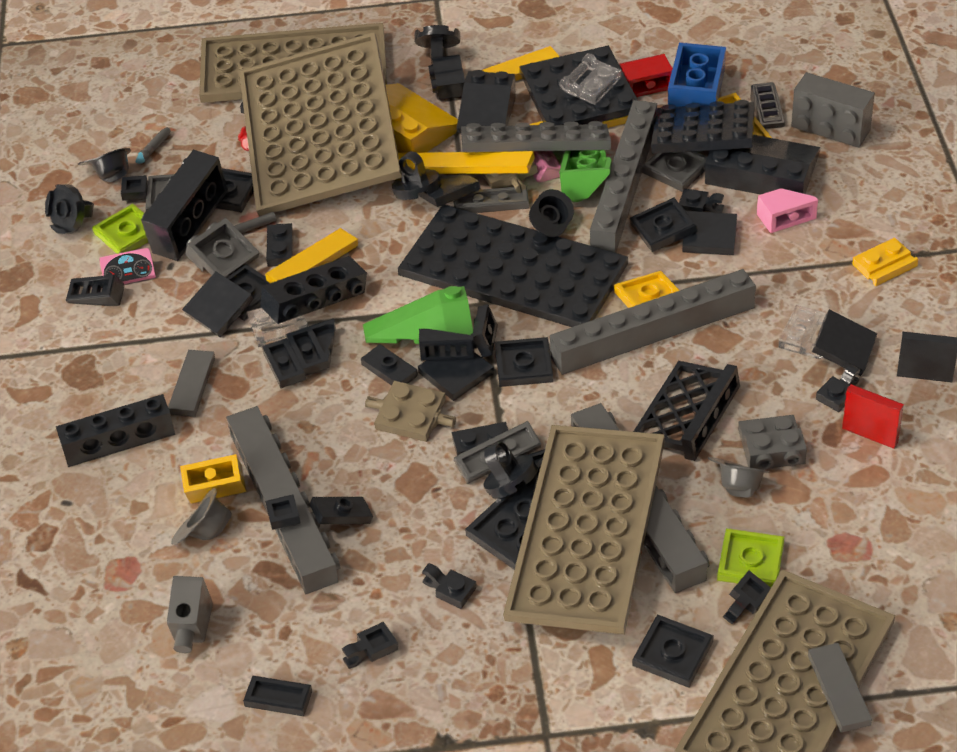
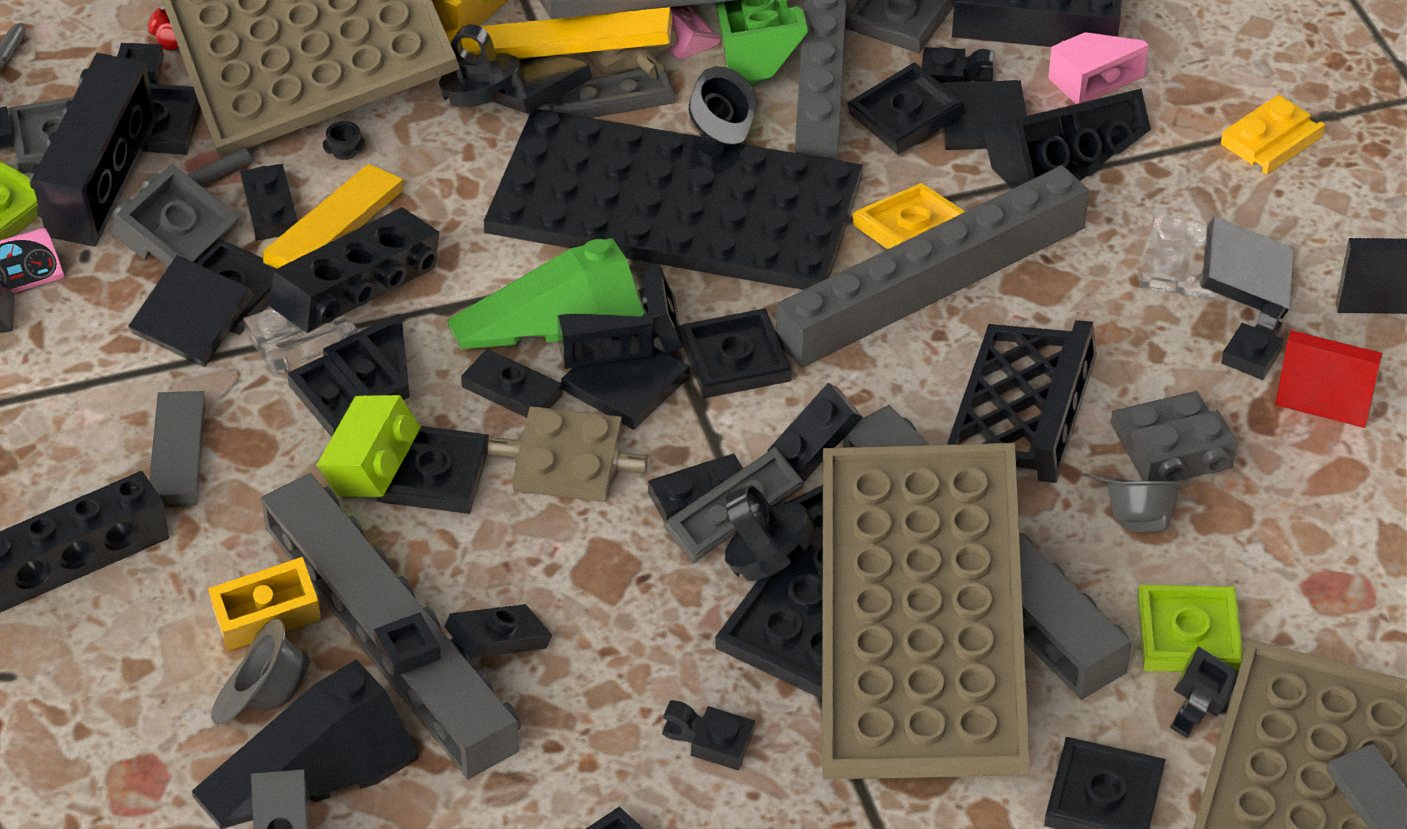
camera: 15 degrees left, 0 degrees up
(227, 562) = (335, 732): none -> black wedge
(228, 155) = (149, 53): none -> black plate
(295, 393) = (368, 446): none -> lime brick
(330, 212) = (343, 140): none -> black plate
(332, 411) = (440, 471): none -> black tile
(554, 412) = (817, 427): none -> black plate
(756, 252) = (1070, 136): none -> black wedge

